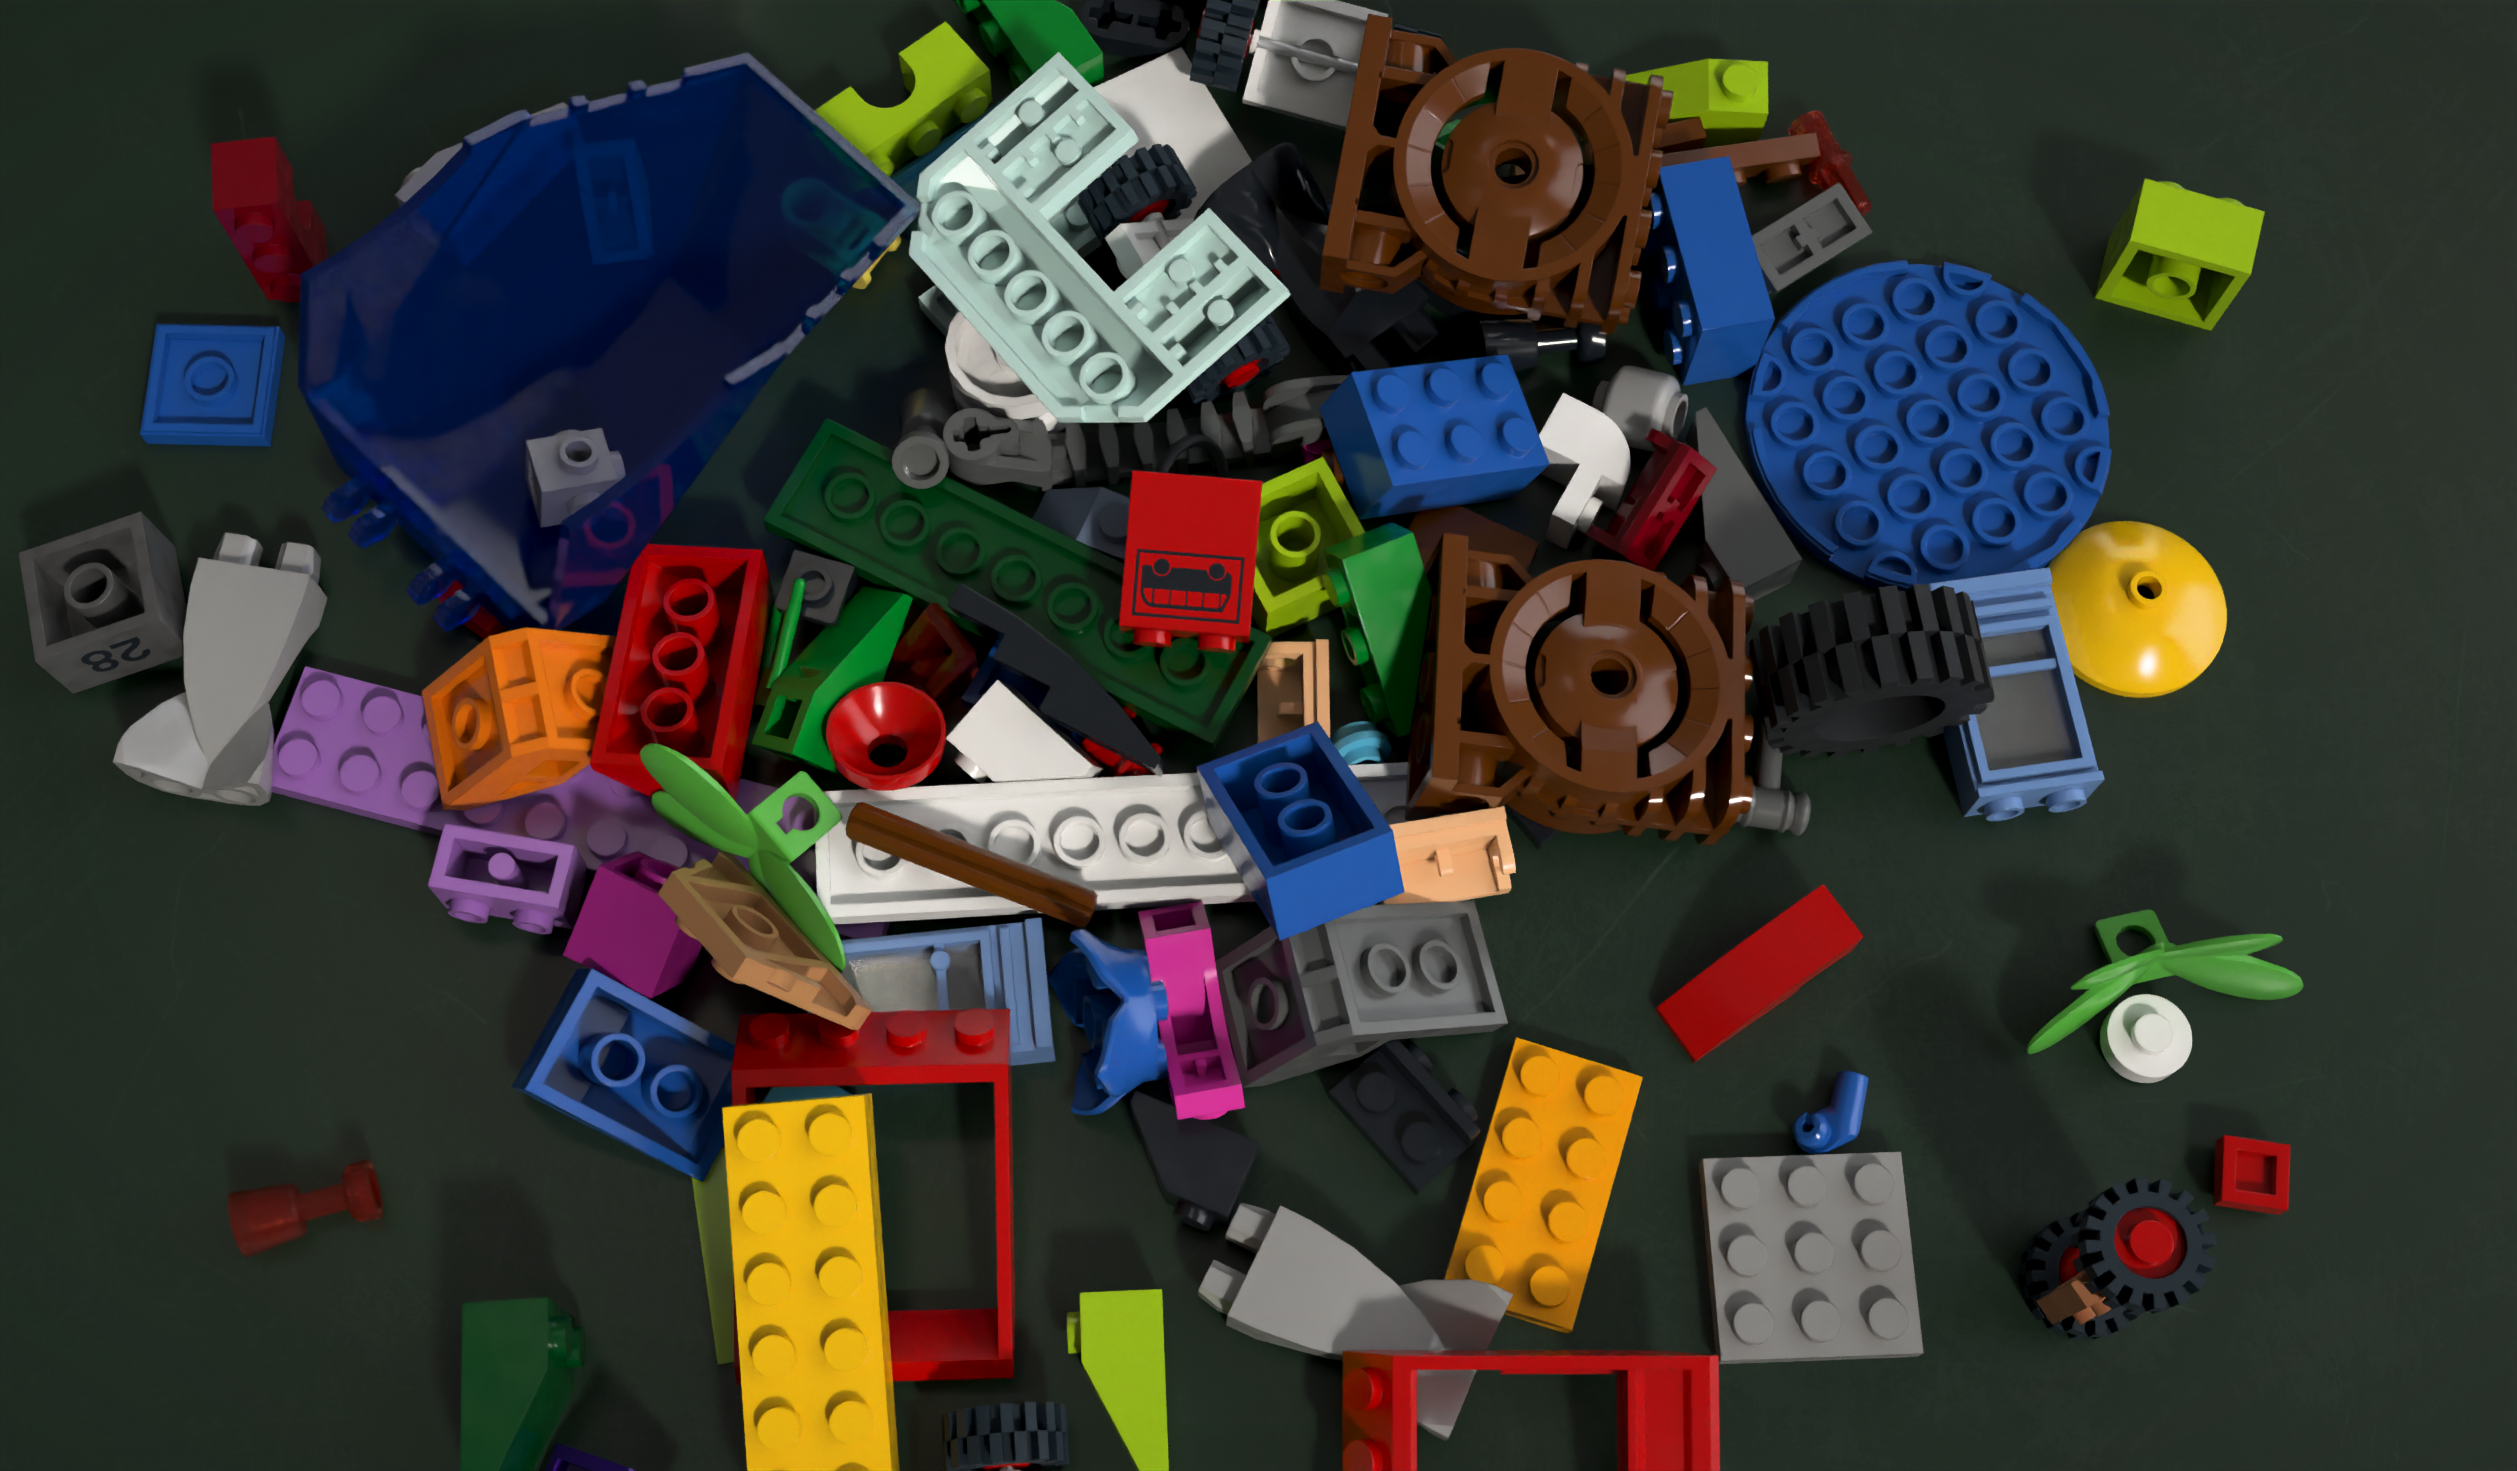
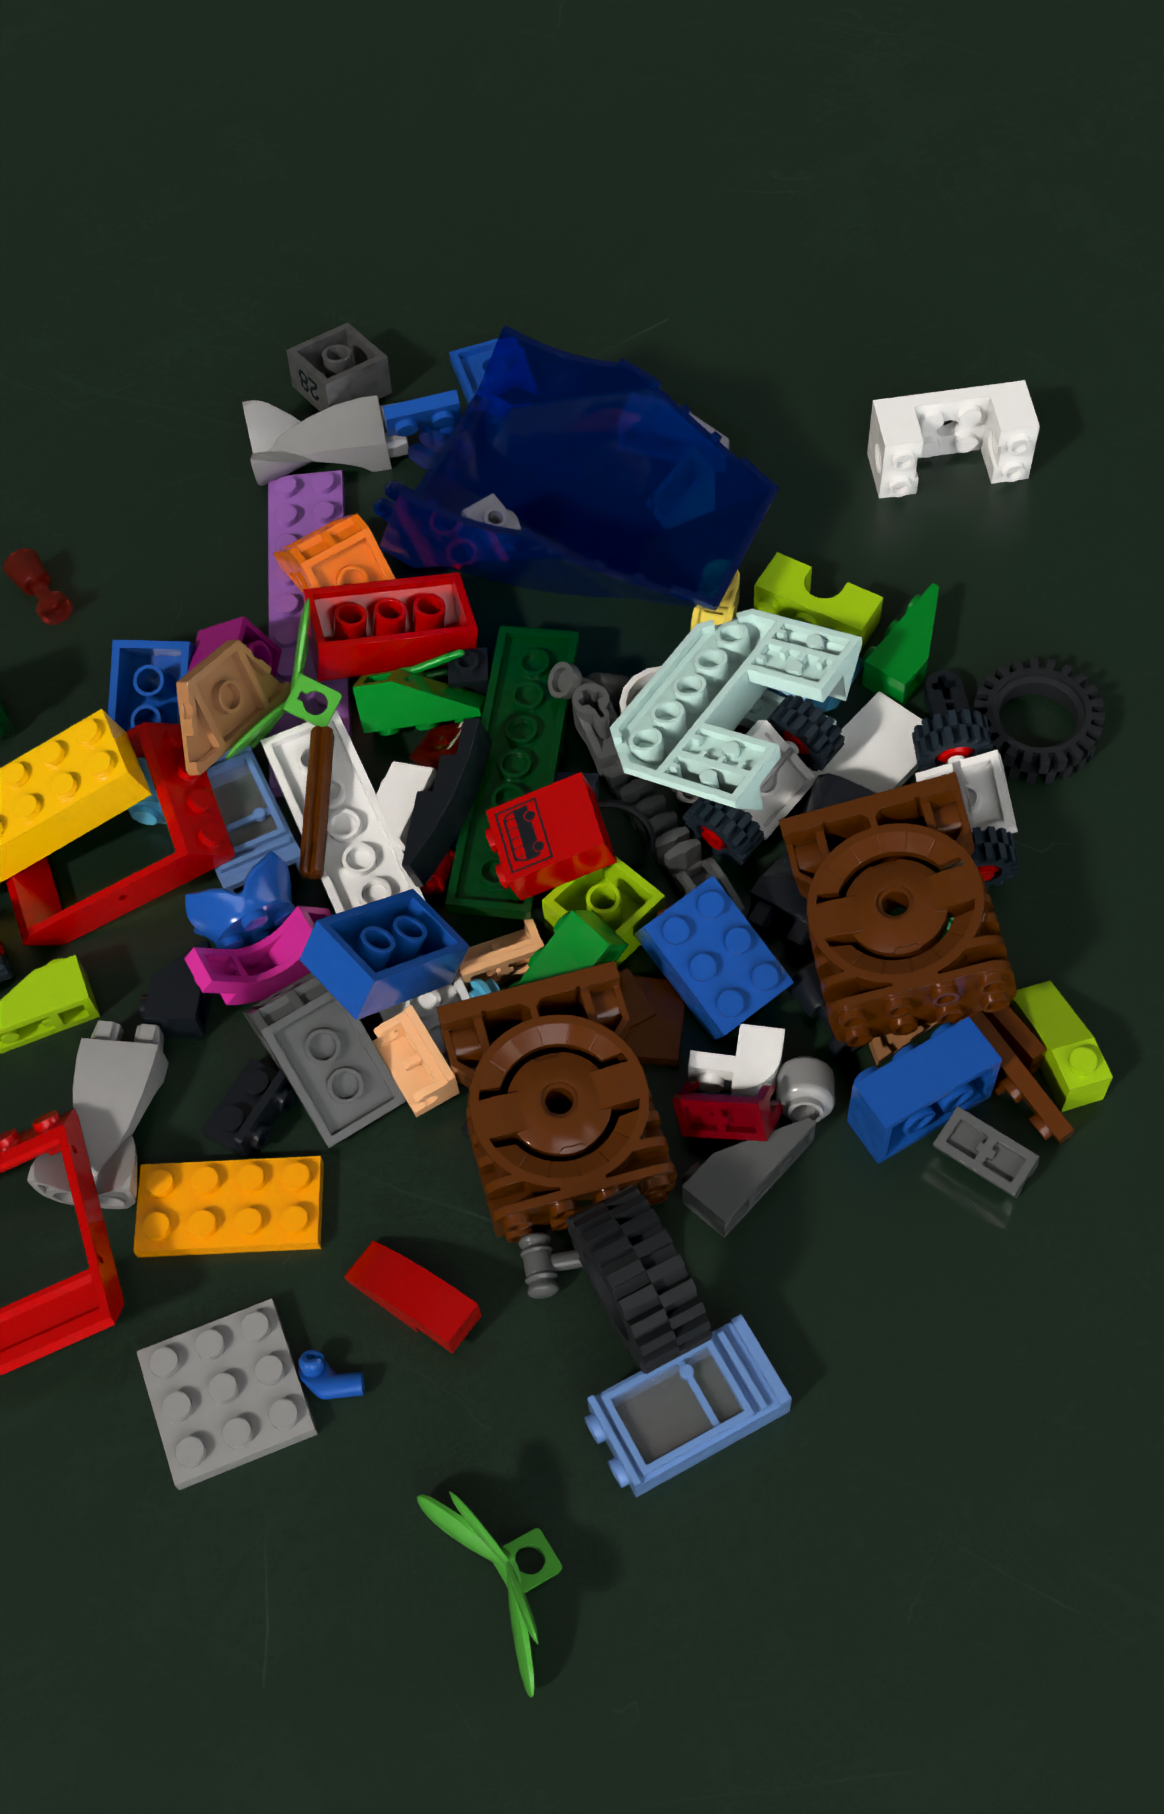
camera: 80 degrees right, 10 degrees down
(261, 216) = (577, 318): dark red arch -> none
(301, 496) = (434, 411): none -> blue plate
(508, 878) = (243, 589): medium lavender brick -> none
(880, 716) = (384, 719): red piece -> none
(1833, 164) = (1066, 1161): clear red axle -> none
(1926, 426) = (888, 1298): blue tile -> none
(2116, 634) = (799, 1523): yellow dish -> none
(2117, 1259) = (237, 1568): black plate -> none
(2146, 1038) = (455, 1586): white wheel -> none
(2179, 254) = (1108, 1425): lime brick -> none
(2251, 1175) = (371, 1694): red plate -> none

